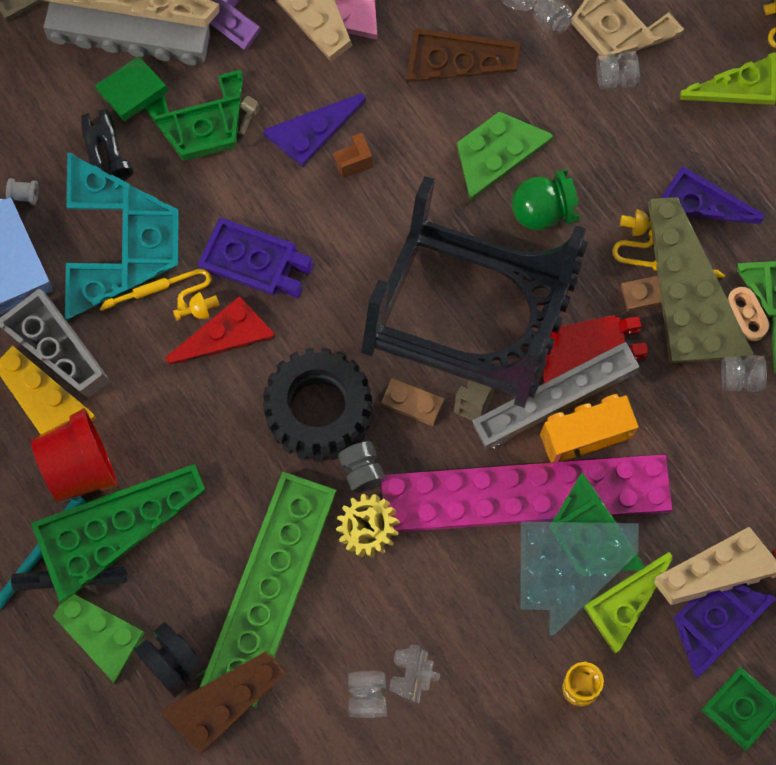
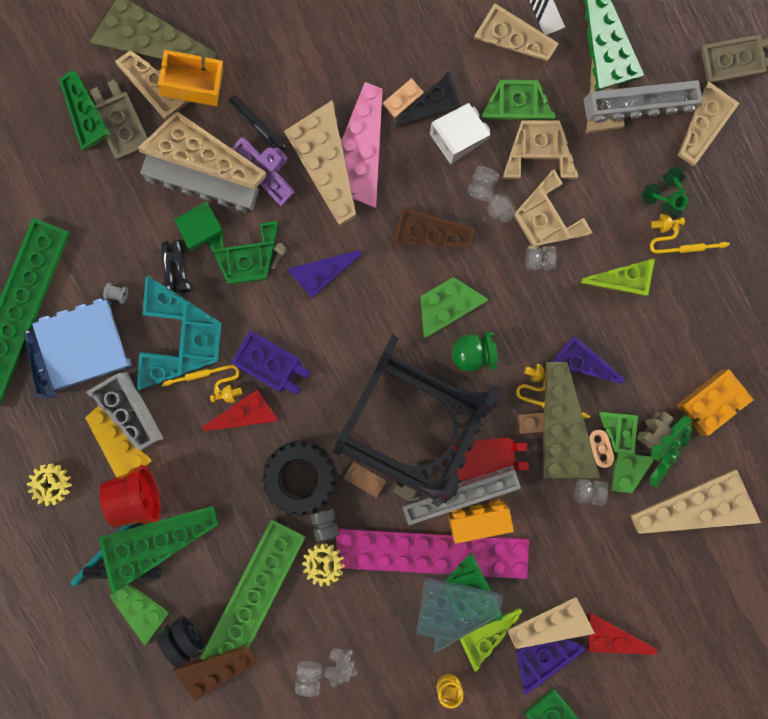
camera: 10 degrees right, 15 degrees up
(354, 158) = (347, 297): dark orange panel -> none

